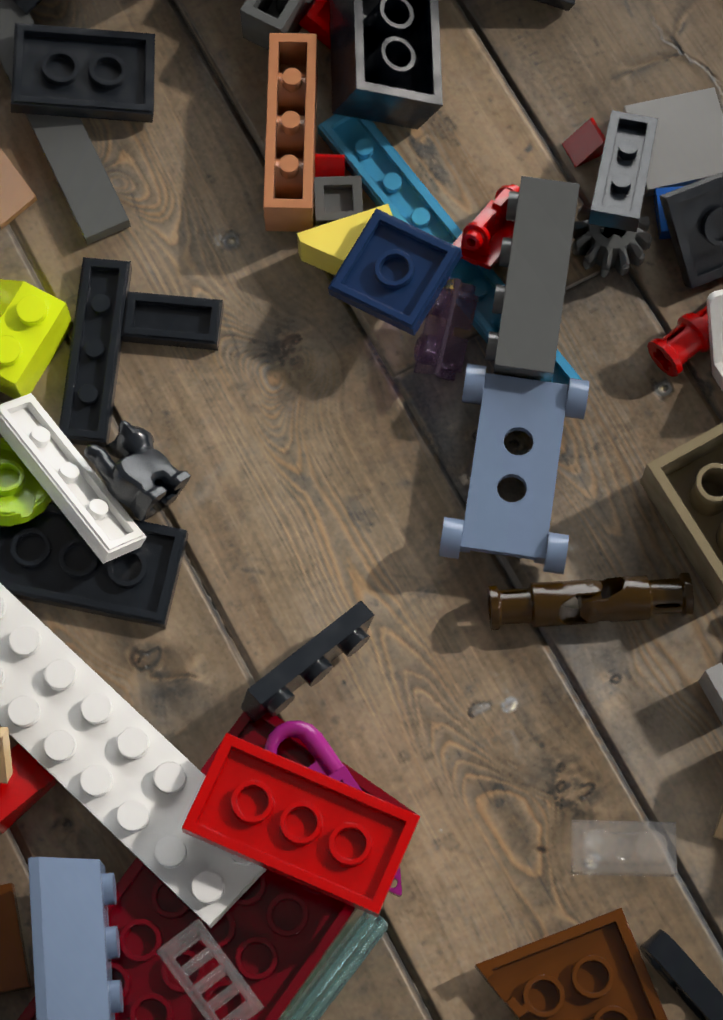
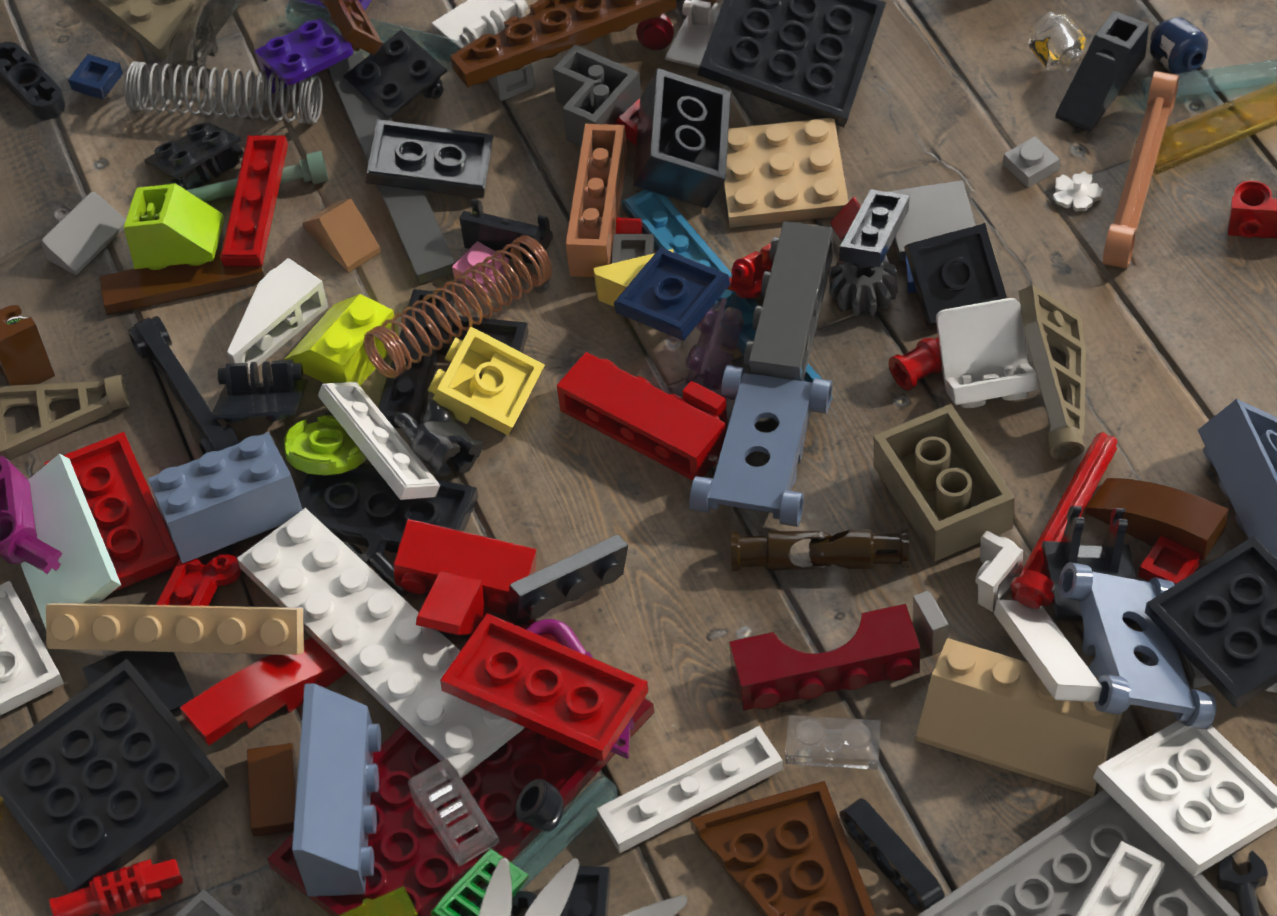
camera: 10 degrees right, 20 degrees down
(57, 346) = (395, 346): none -> nougat piece
(81, 633) = (375, 556): none -> black bar
(159, 222) = (475, 255): none -> bright pink plate
(180, 715) = (453, 605): none -> red slope
(183, 388) = (485, 381): none -> light yellow plate
(184, 177) = (499, 231): none -> black hinge
(187, 649) = (433, 548): none -> red brick
(306, 965) = (540, 805): none -> black tile
(371, 428) = (642, 416): none -> red brick
(442, 413) = (705, 400): none -> red tile
(470, 921) = (689, 789): none -> white plate
(506, 79) = (784, 173): none -> tan plate
(546, 765) = (775, 673): none -> dark red arch

